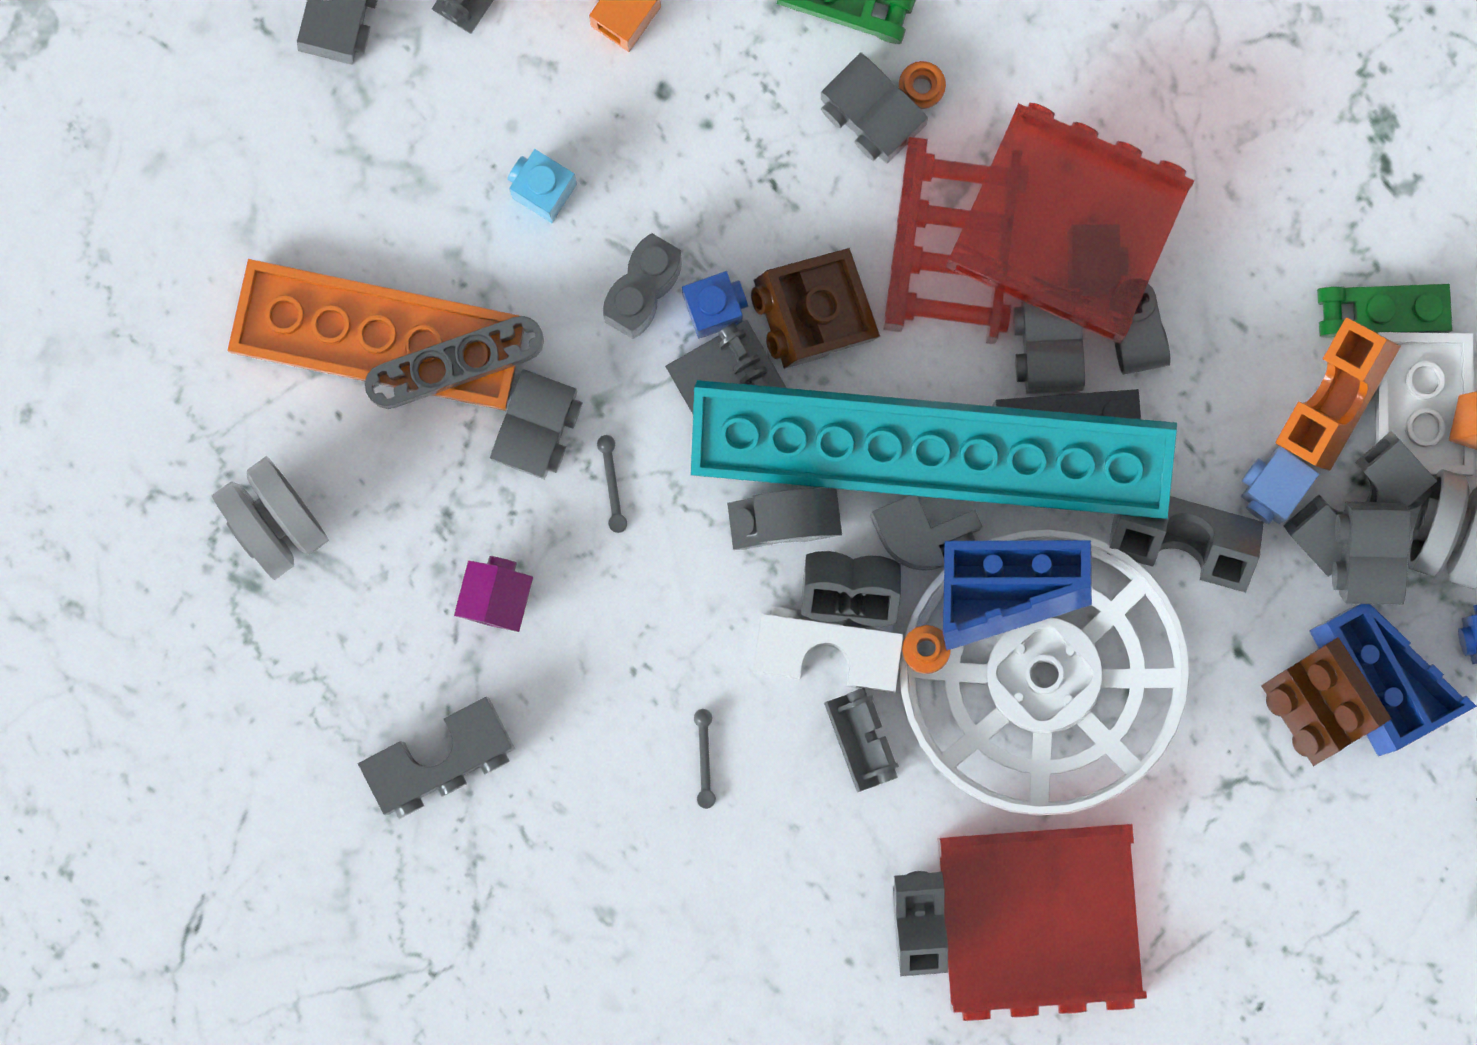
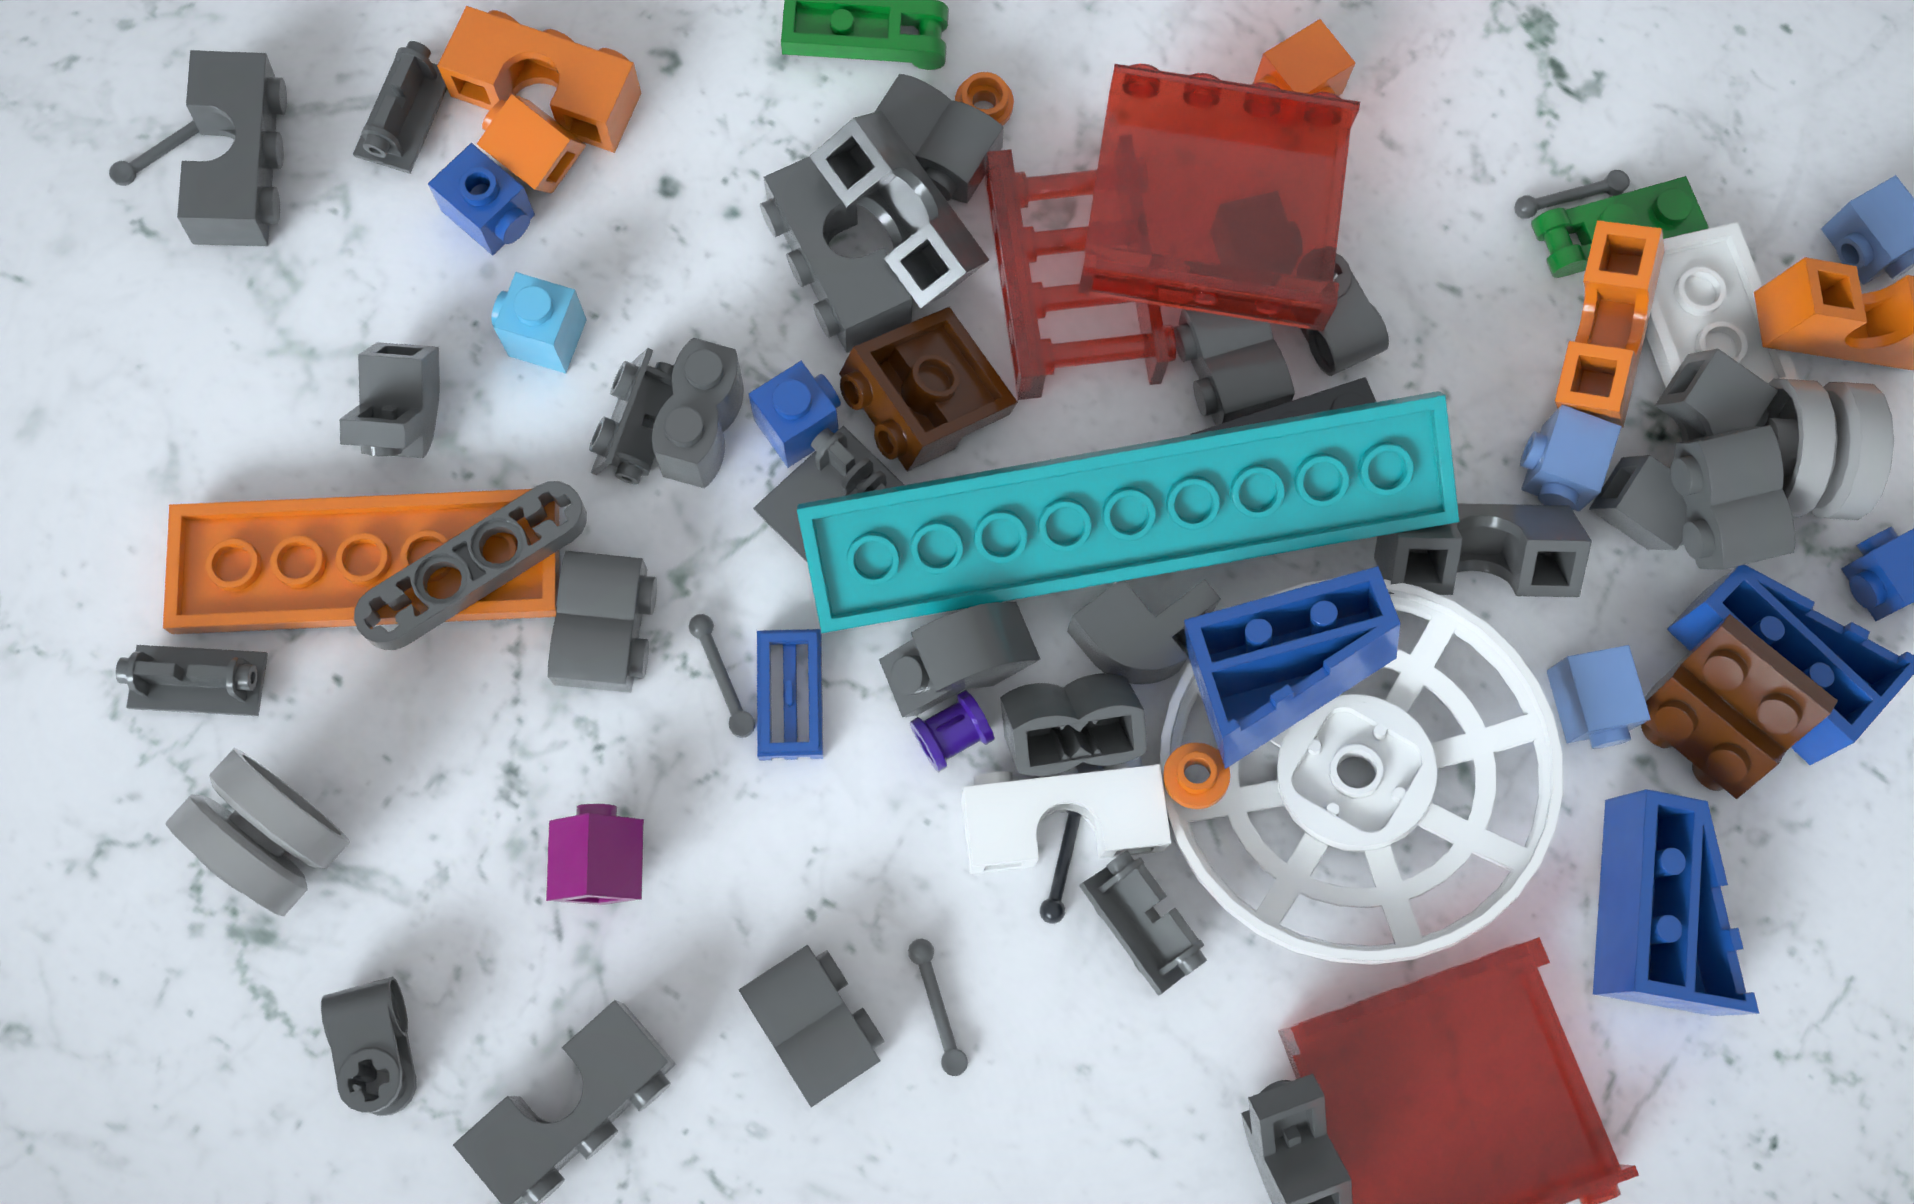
camera: 20 degrees left, 10 degrees down
(241, 391) = (193, 680): none -> dark grey hinge
(313, 672) = (366, 1034): none -> dark grey piece
(424, 220) = (395, 401): none -> dark grey brick
(522, 75) = (482, 199): none -> blue brick
(566, 39) = (529, 143): none -> orange brick
(601, 258) = (623, 438): none -> dark grey hinge
(615, 748) = (811, 1023): none -> dark grey brick
(648, 549) = (790, 748): none -> blue tile
(765, 569) = (952, 730): none -> dark purple bush
(781, 223) = (855, 295): none -> dark grey arch
(803, 712) = (1052, 909): none -> black hinge
(847, 195) = (878, 171): none -> dark grey arch
(1174, 127) = (1307, 62): none -> orange brick
(1229, 829) = (1663, 909): none -> blue wedge
(1238, 667) = (1598, 696): none -> medium blue brick
(1396, 273) = (1614, 184): none -> dark grey hinge

